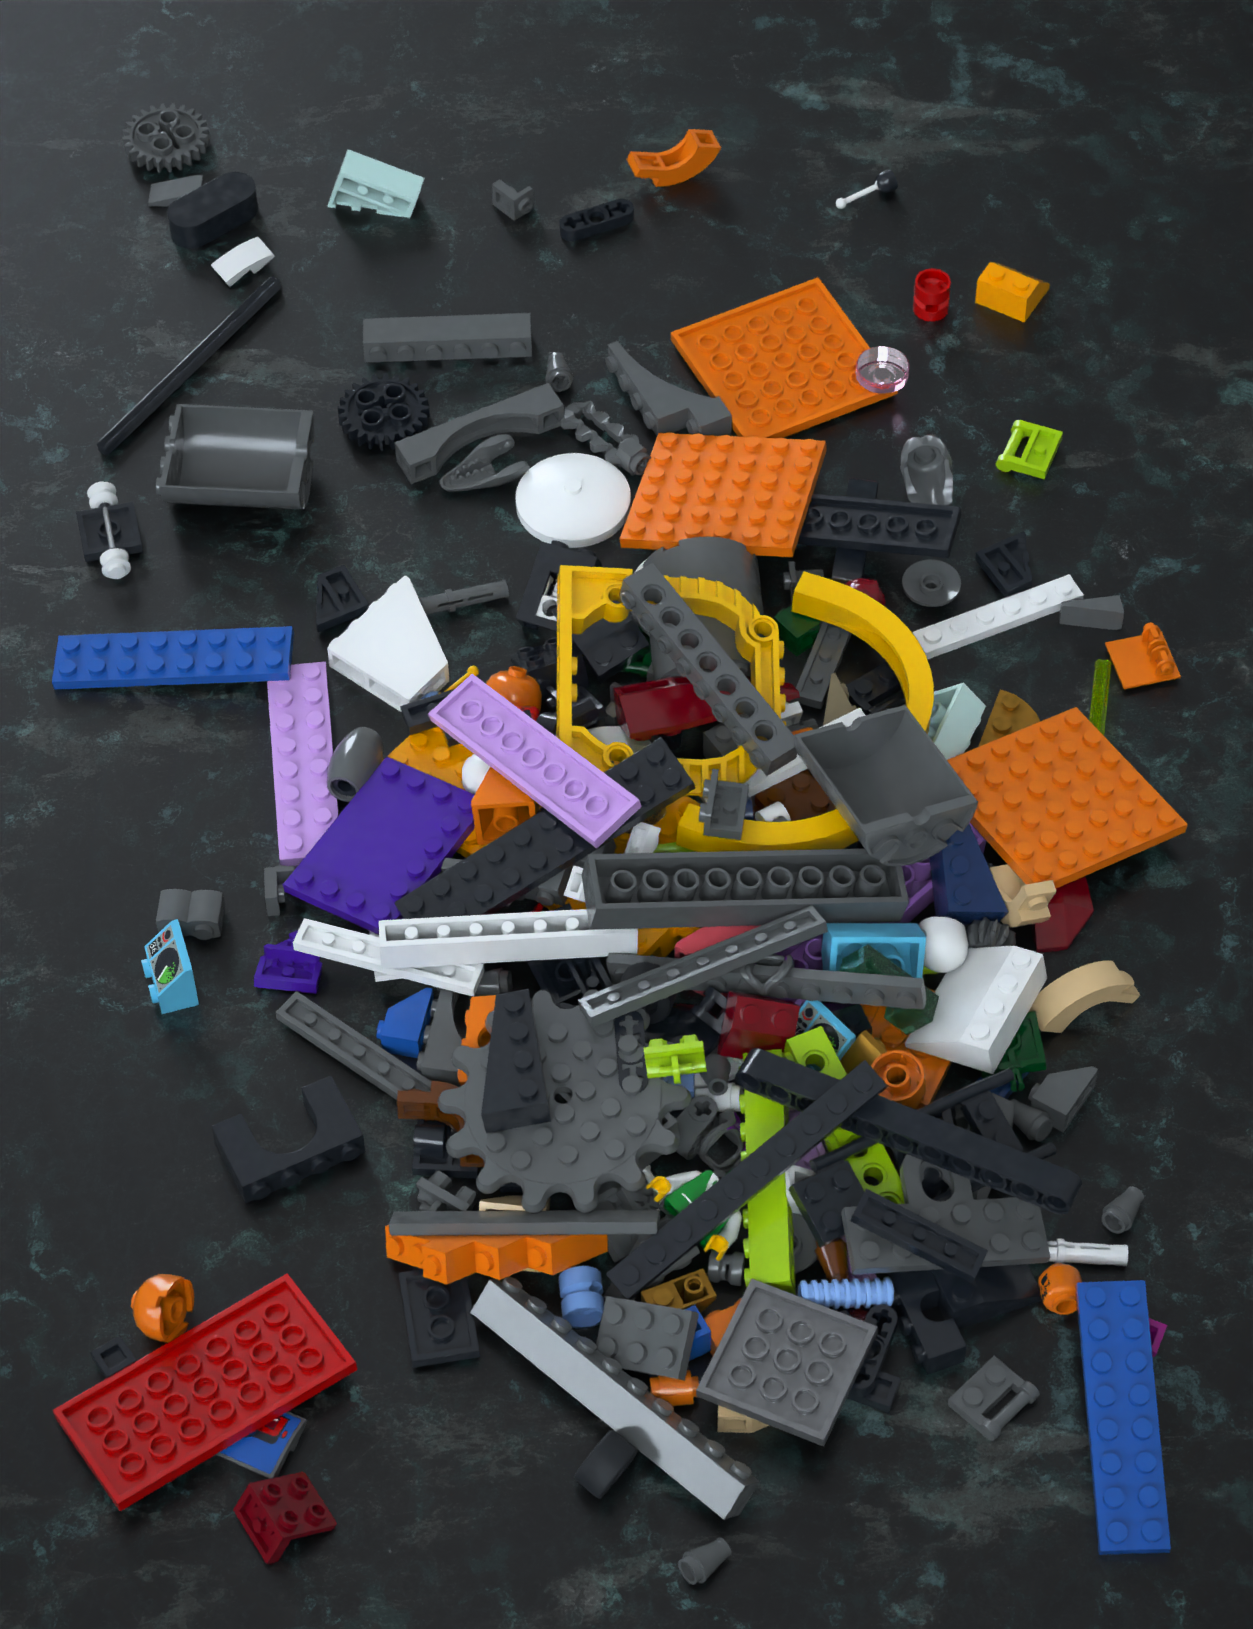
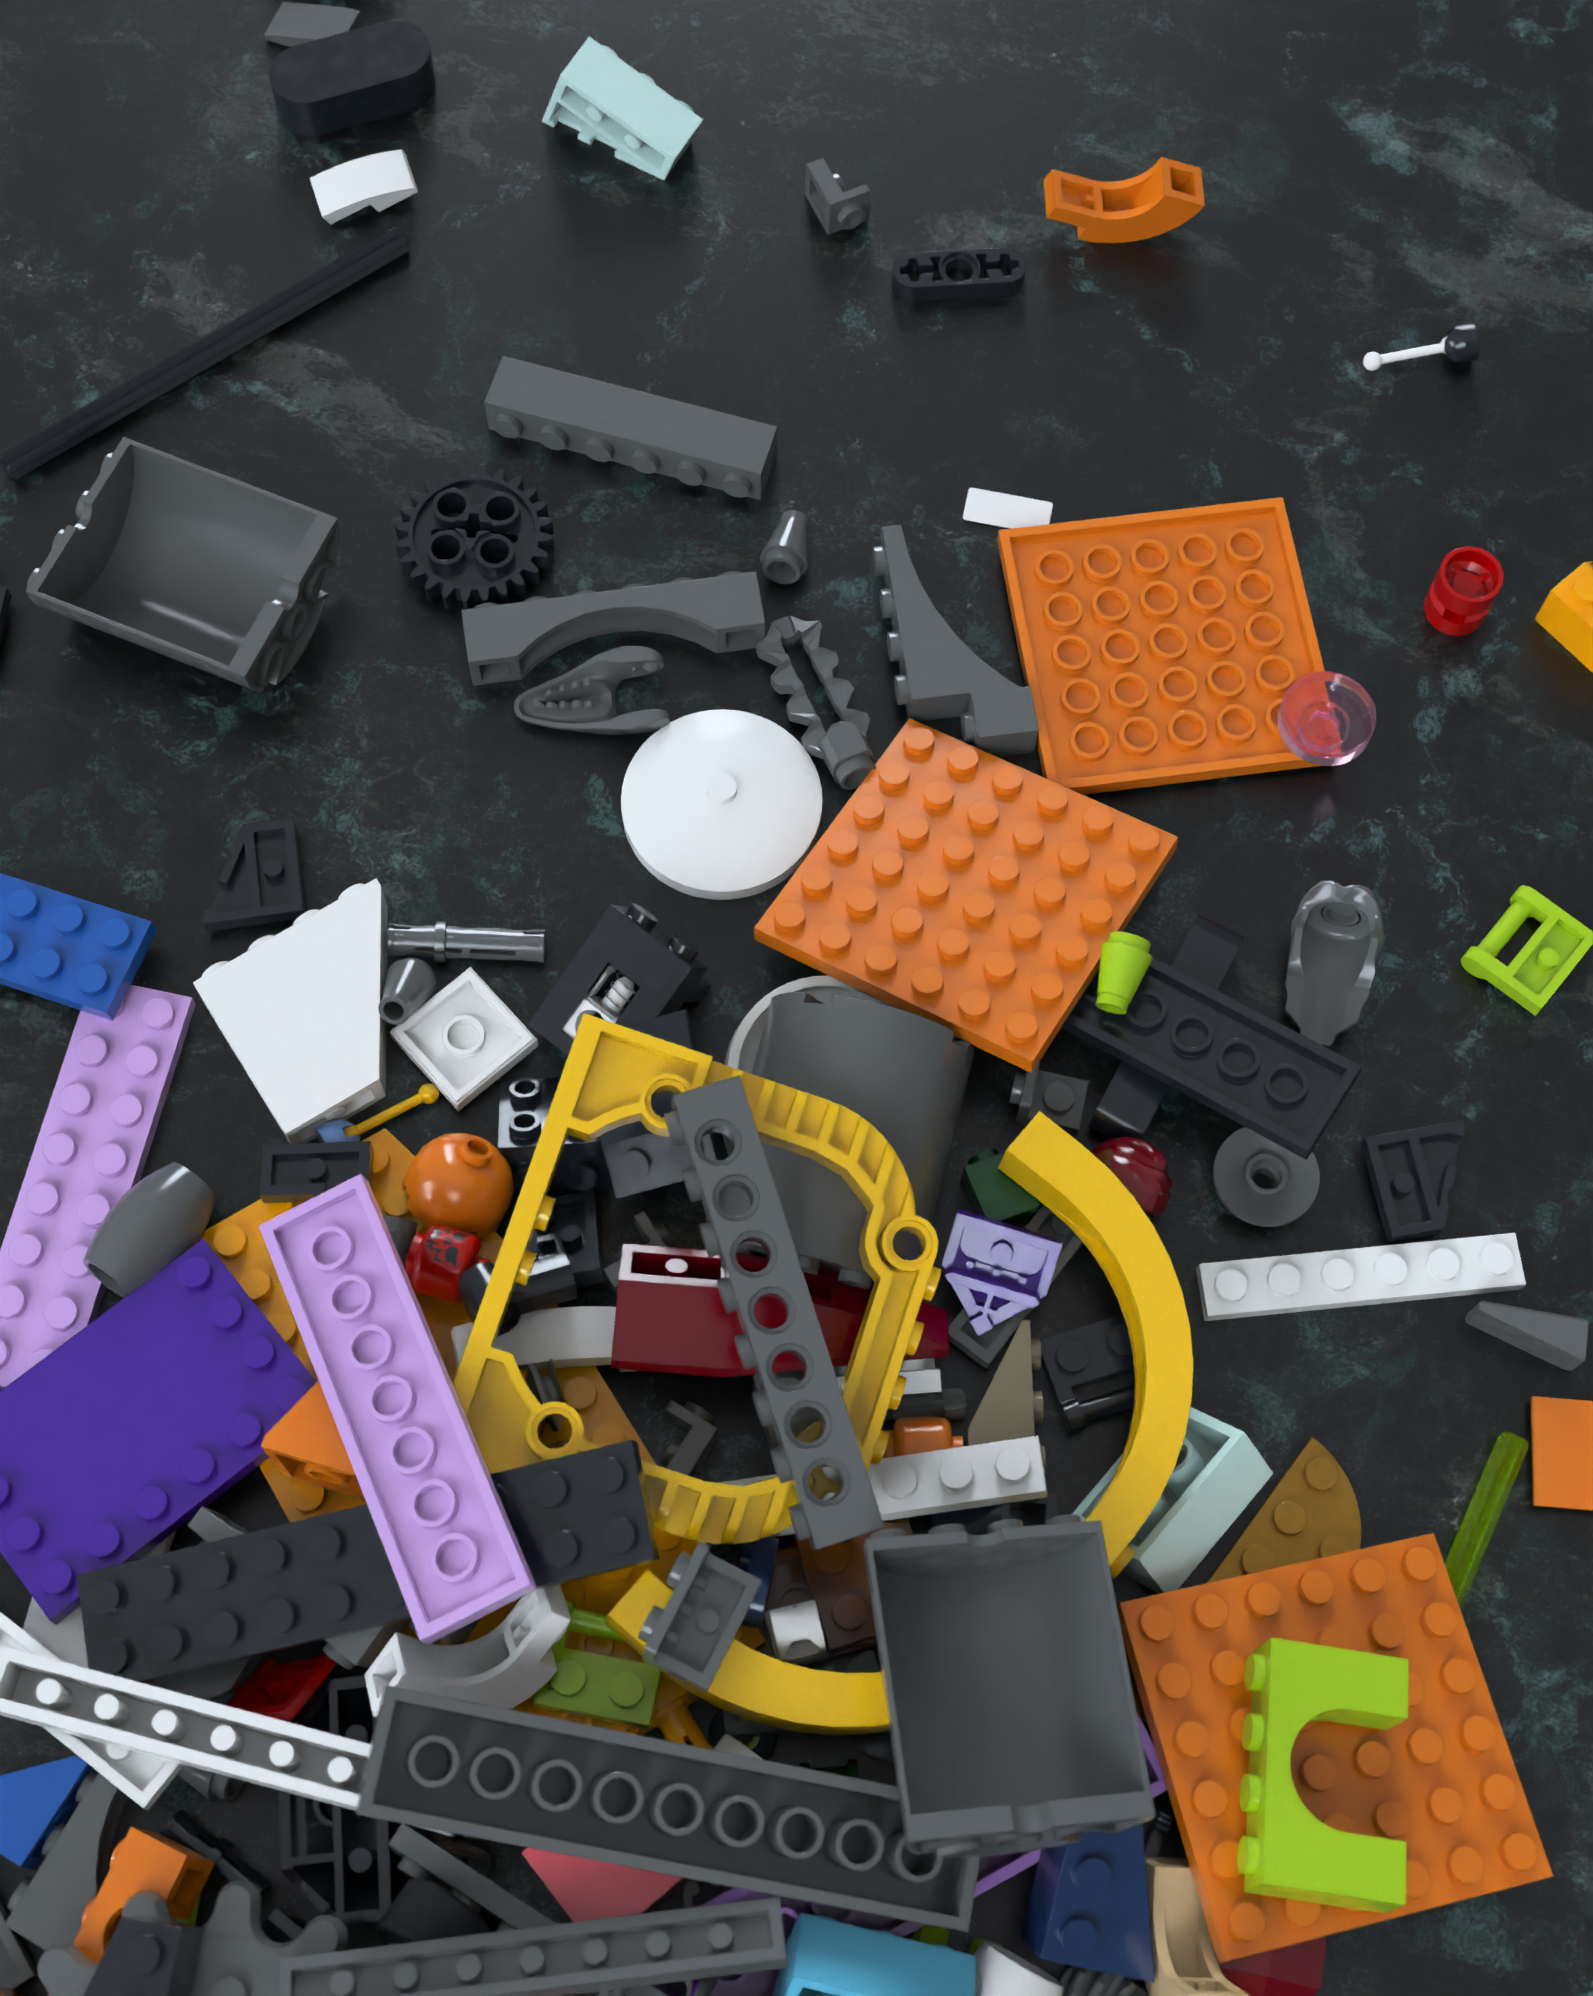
camera: 15 degrees right, 15 degrees up
(442, 615) = (406, 988): none -> dark grey cone
(482, 640) = (464, 1039): none -> white plate
(667, 325) = (1005, 509): none -> white sticker
(810, 655) = (997, 1267): none -> slope
(820, 500) = (1121, 970): none -> lime cone
(1050, 828) = (1285, 1846): none -> lime arch

